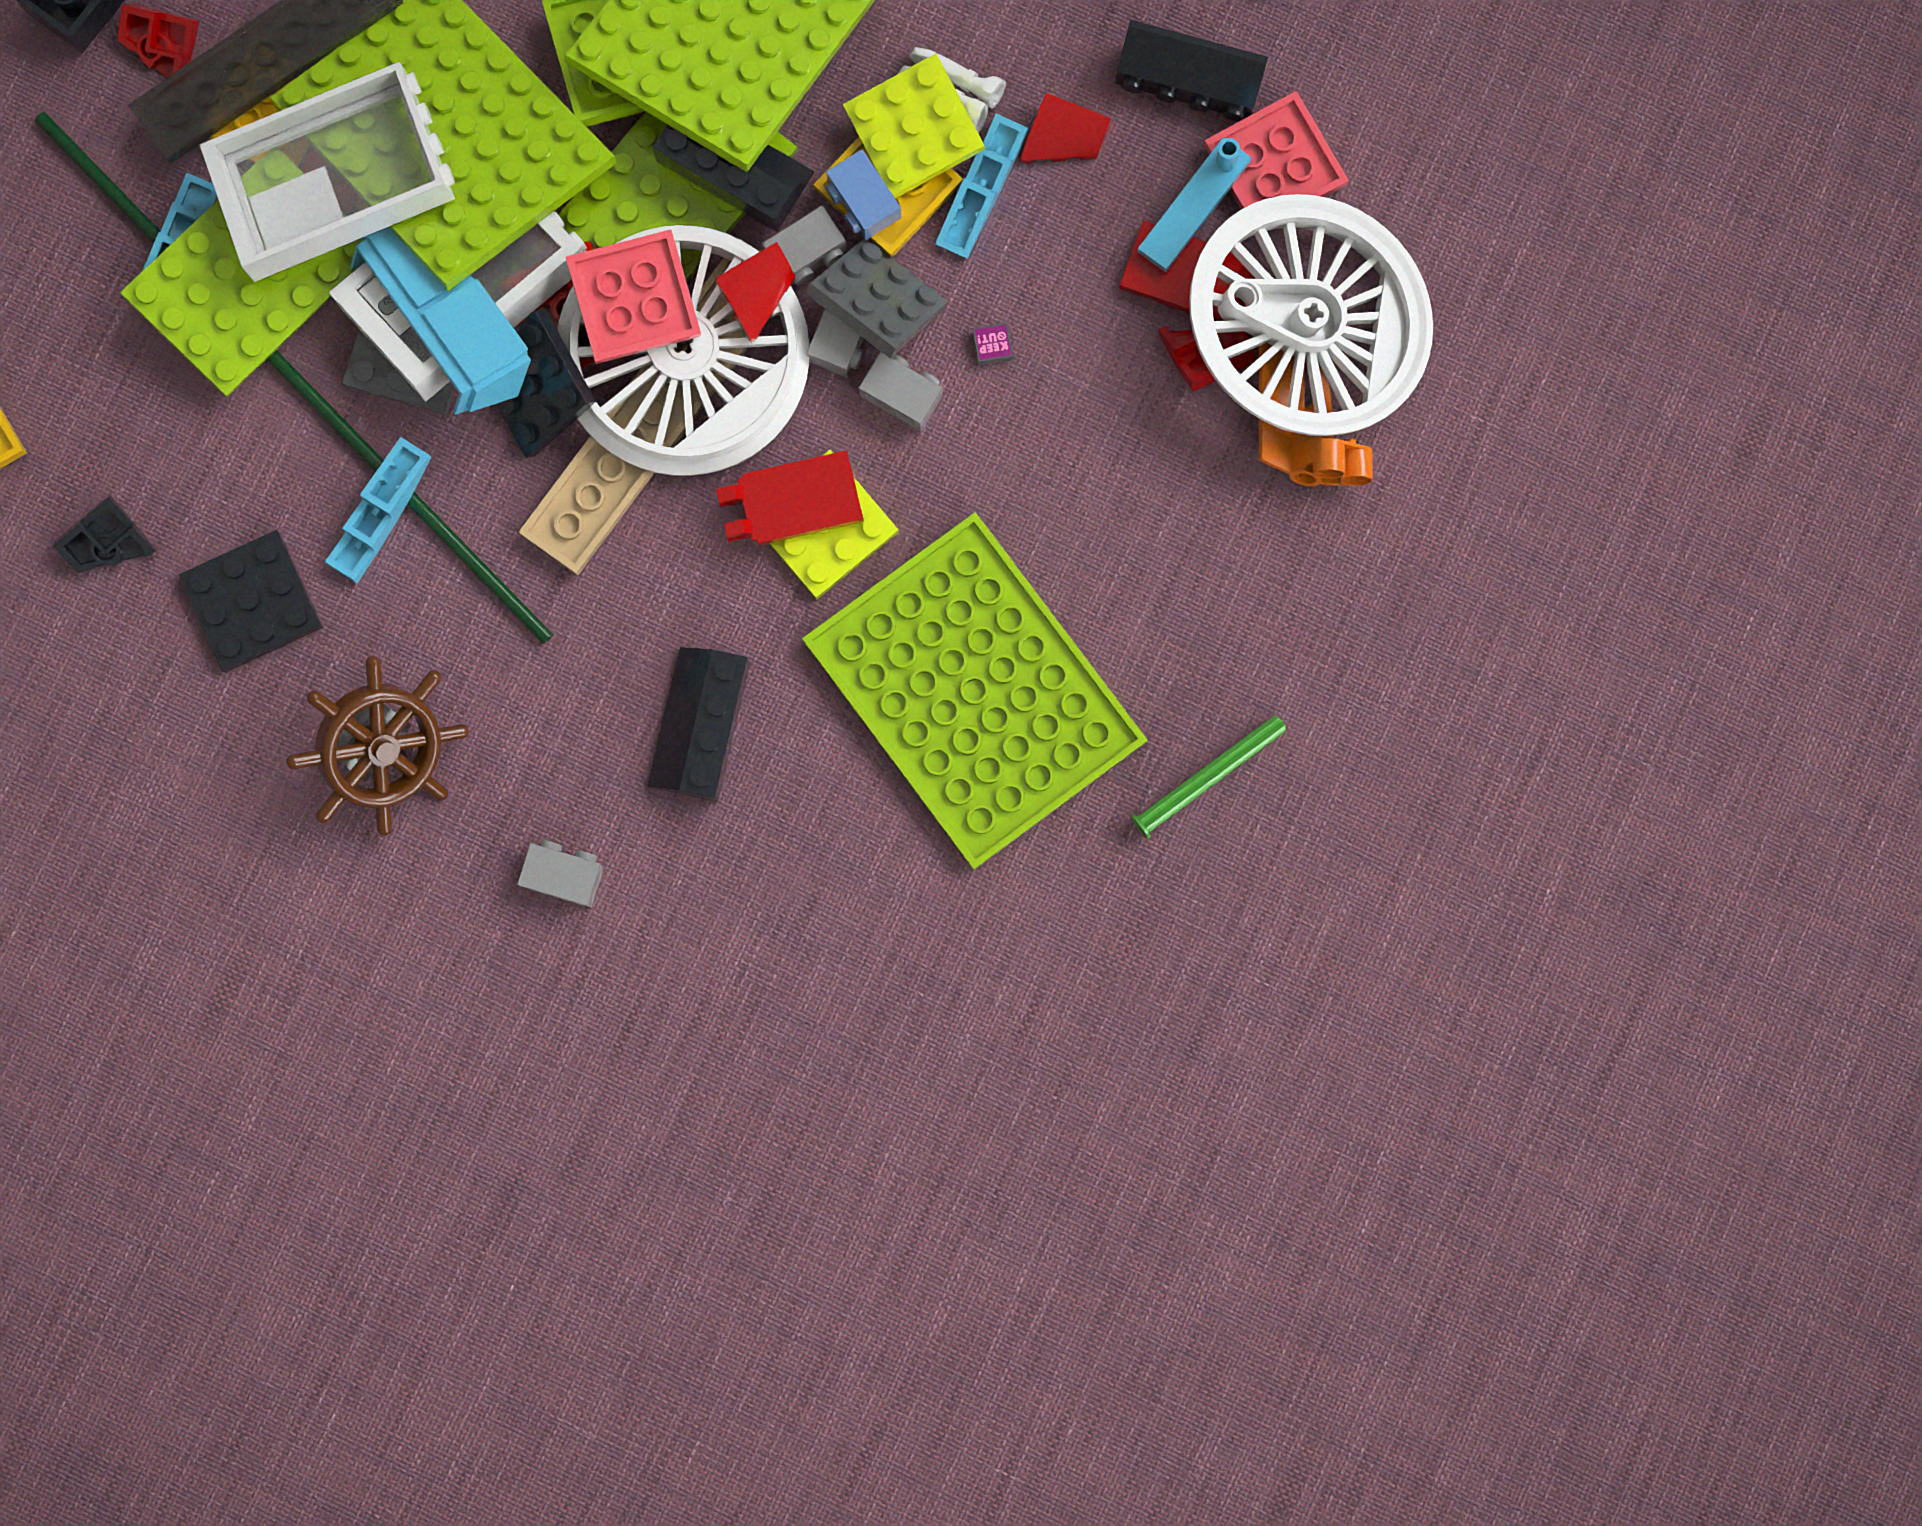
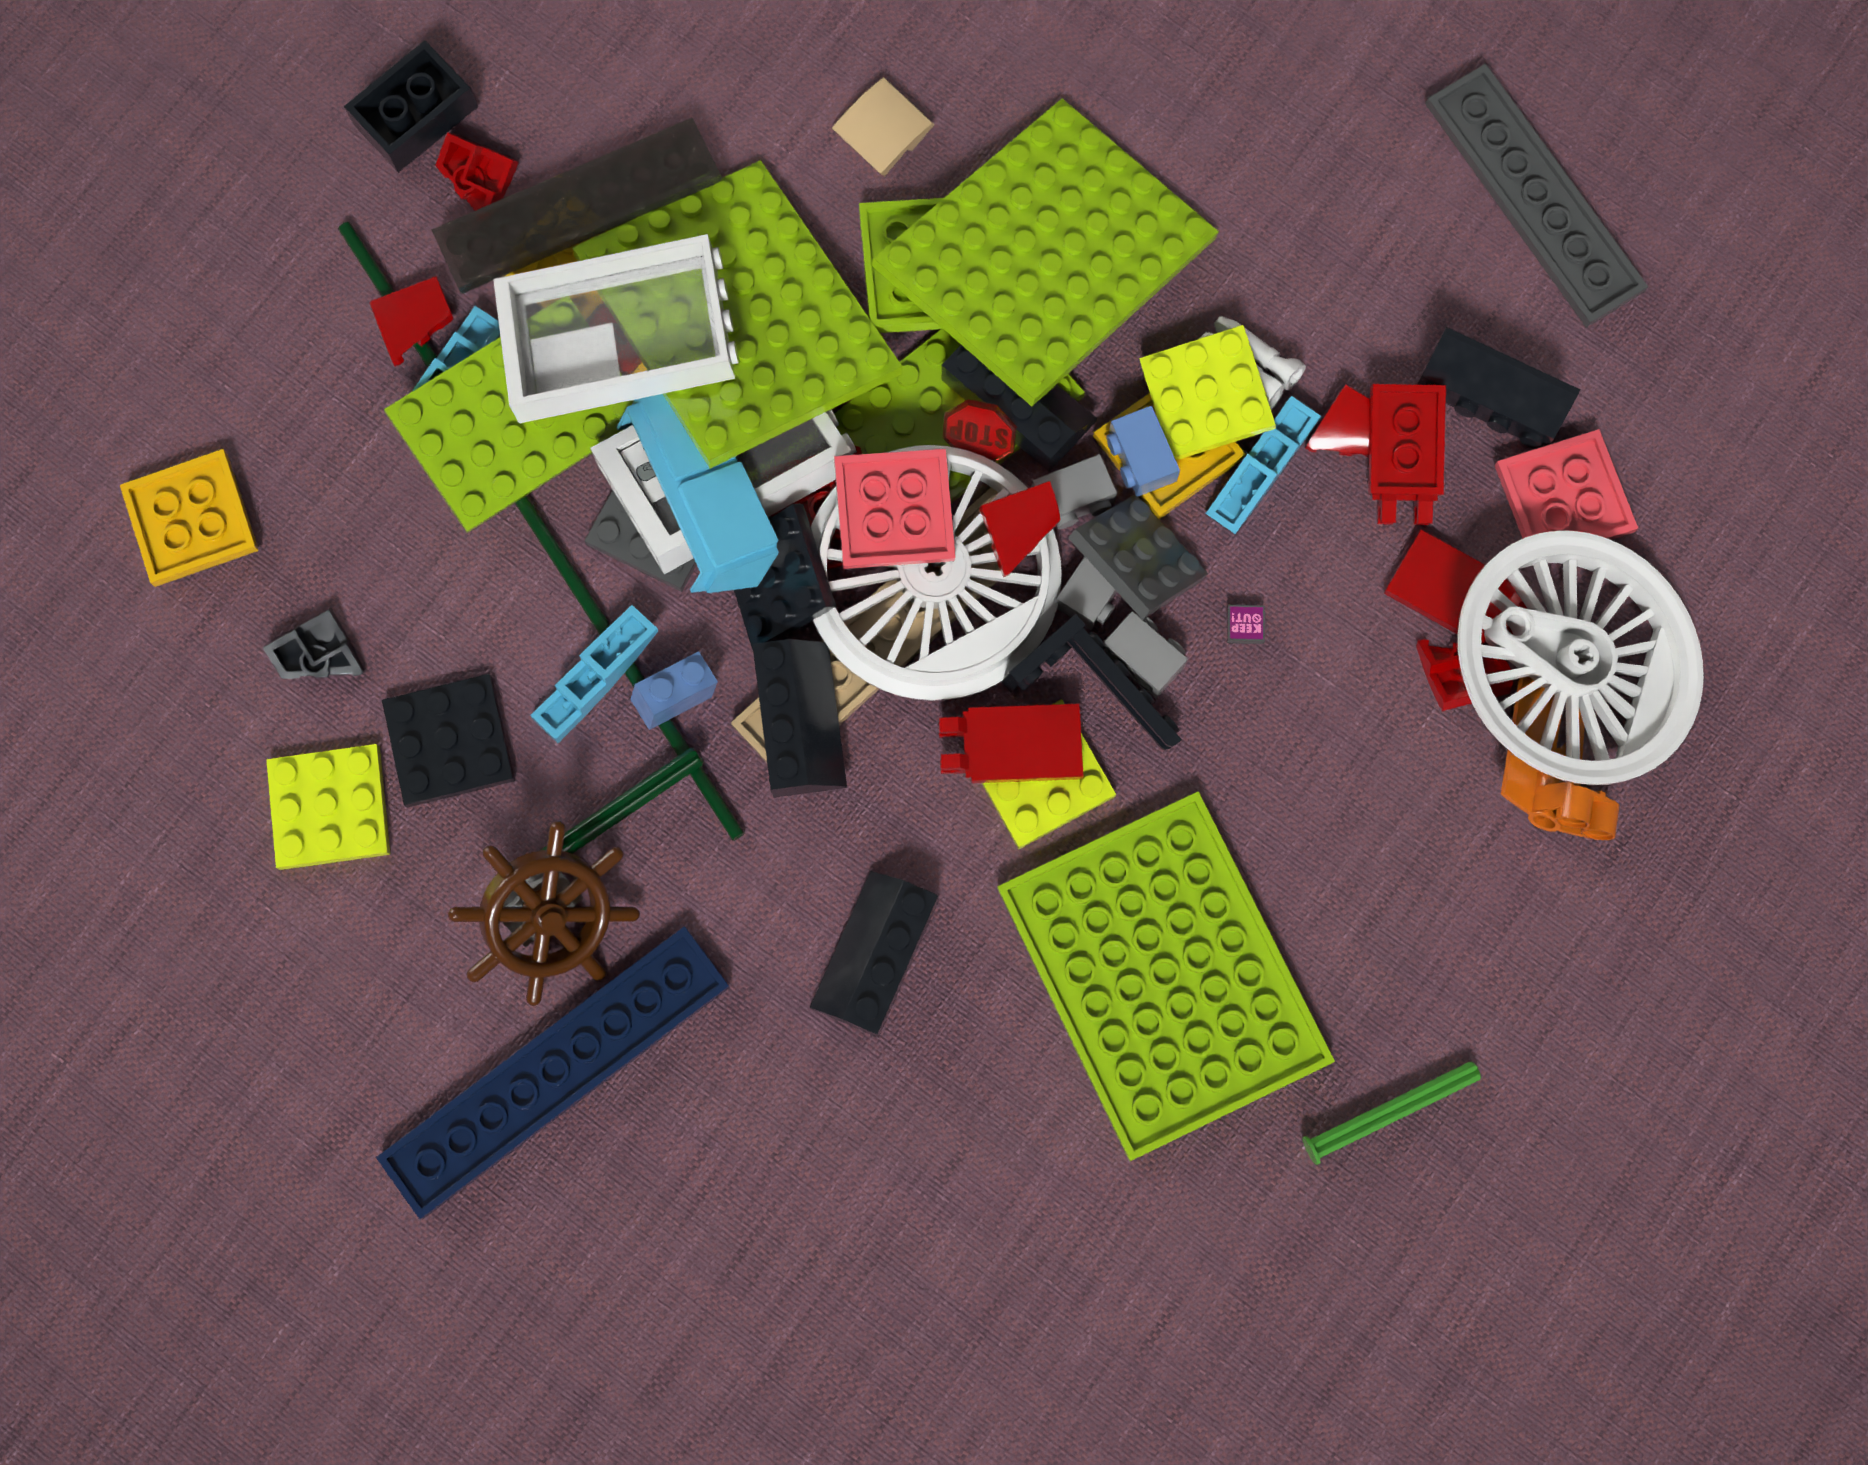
camera: 15 degrees right, 5 degrees down
(126, 195) = (411, 316): none -> red slope
(149, 686) = (328, 807): none -> neon yellow plate
(417, 893) = (552, 1073): none -> dark blue plate
(439, 624) = (631, 800): none -> dark green axle
(457, 511) = (673, 690): none -> medium blue brick
(561, 874) = (704, 1081): light grey brick -> none
(582, 513) = (799, 717): none -> black slope
(701, 203) = (980, 429): none -> piece
(872, 415) = (1111, 673): none -> black bracket
(1115, 144) = (1406, 449): none -> red tile
(1195, 204) = (1478, 522): medium azure piece -> none

